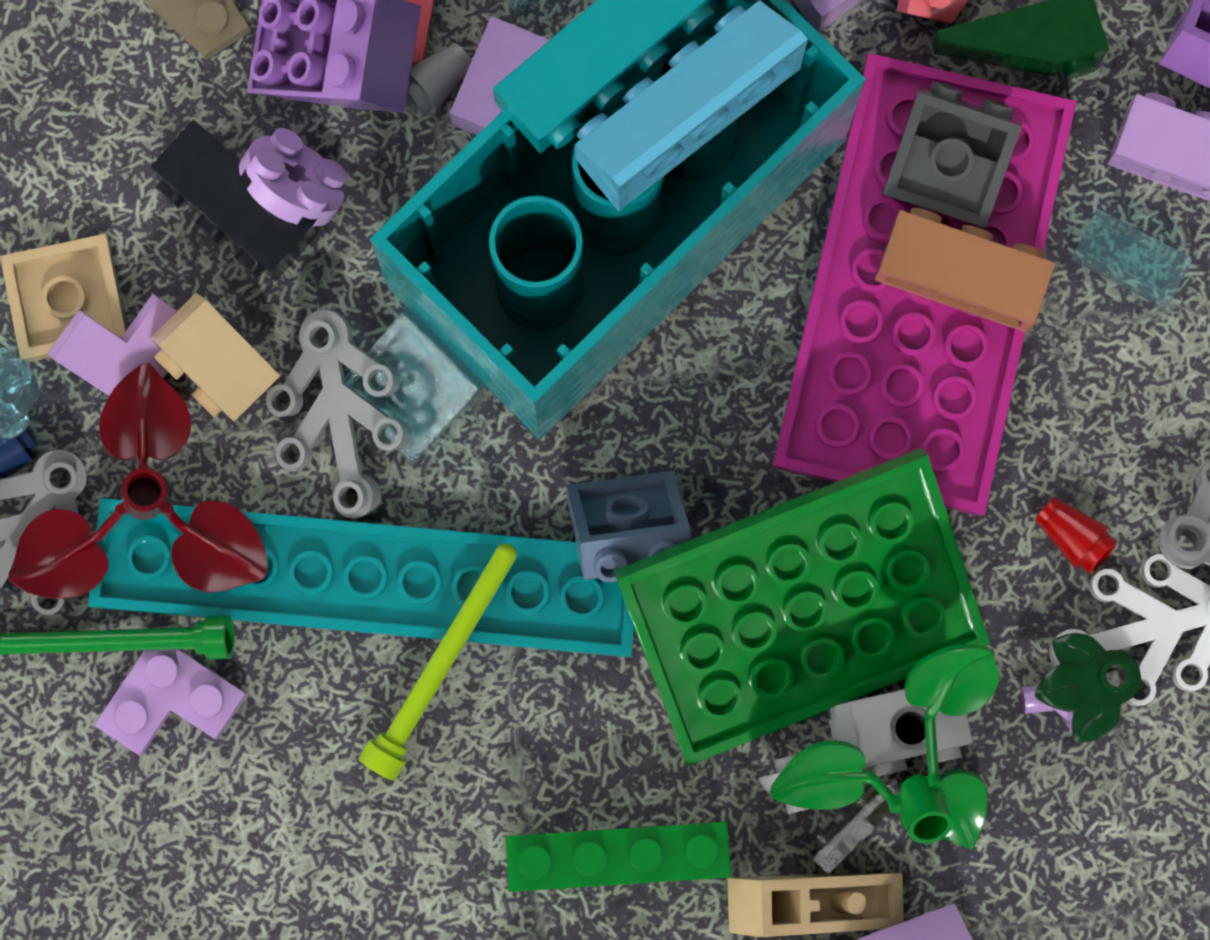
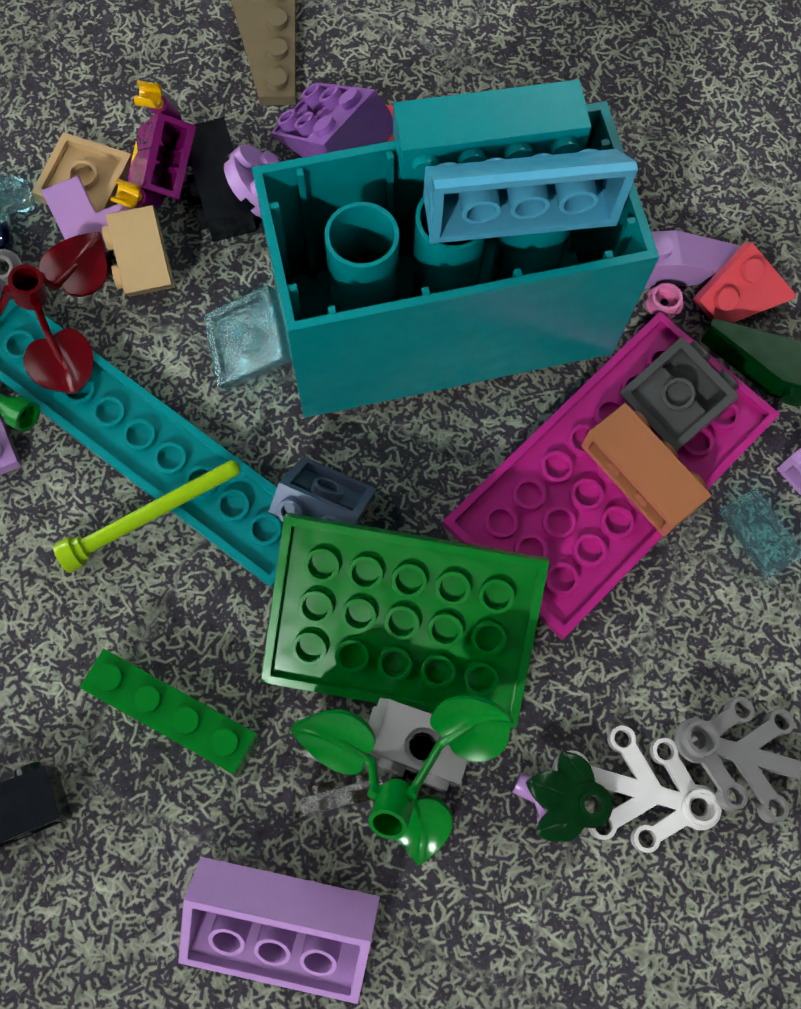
camera: 30 degrees right, 10 degrees down
(159, 231) = (158, 154): none -> magenta torso
(337, 406) = (213, 285): light grey plant -> none
(814, 903) = (283, 833): tan slope -> none
(866, 18) = (665, 292): none -> bright pink plate
(1076, 535) = (620, 691): red cone -> none

